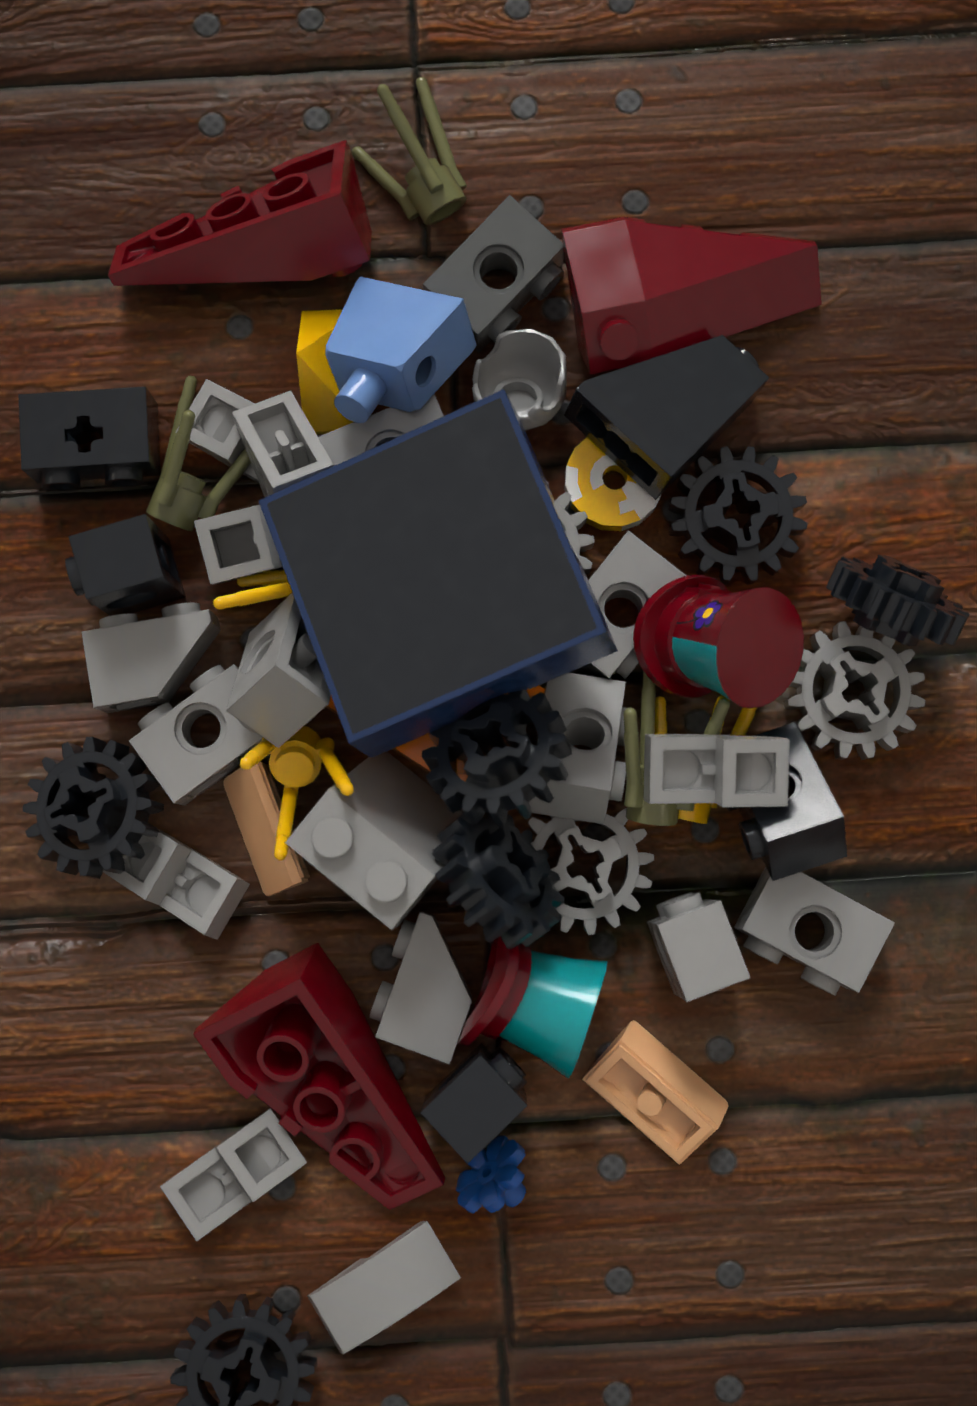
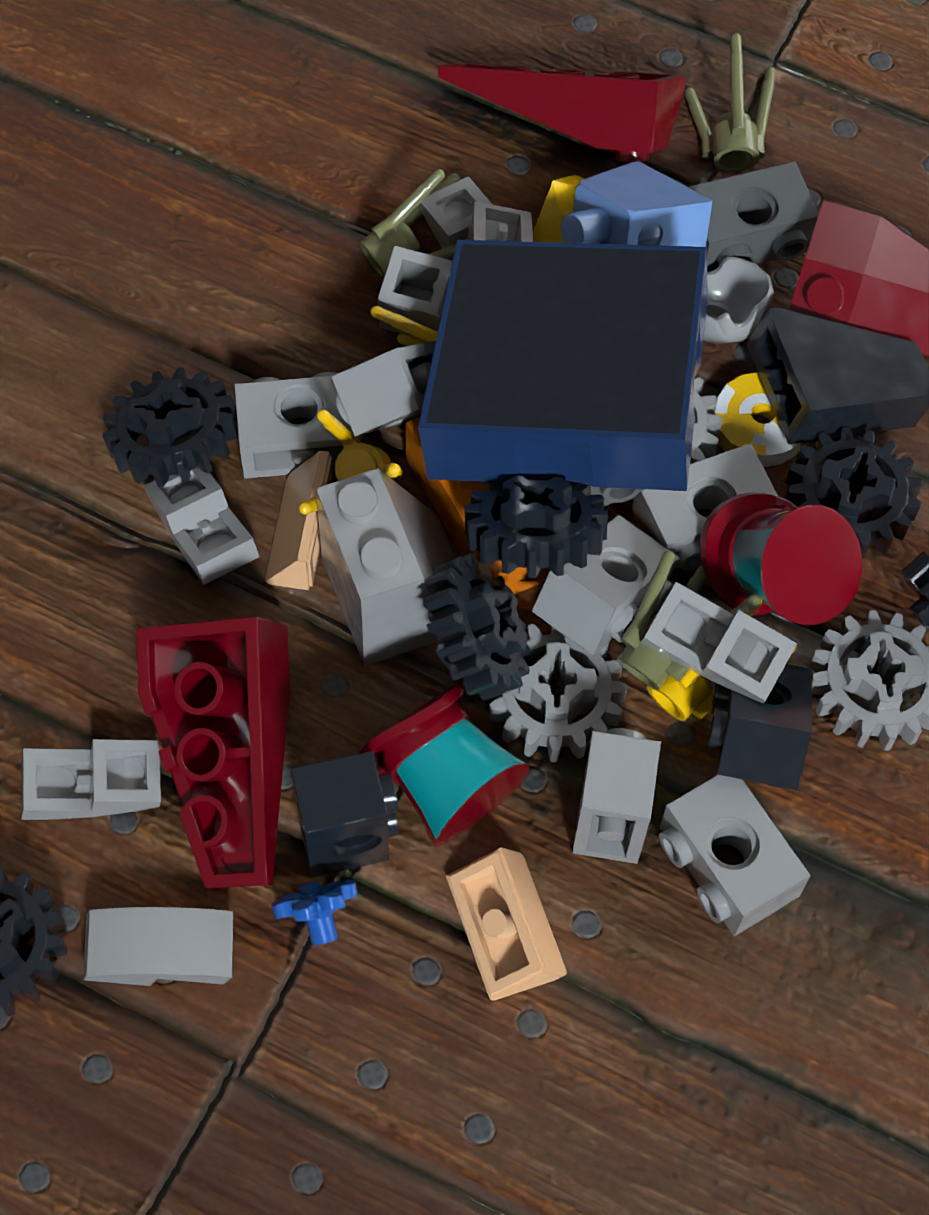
camera: 25 degrees right, 20 degrees down
(60, 421) = (348, 168): black brick -> none
(124, 567) = (317, 261): black brick -> none
(146, 660) = (290, 340): light grey slope -> none
(429, 994) = (351, 709): light grey slope -> none

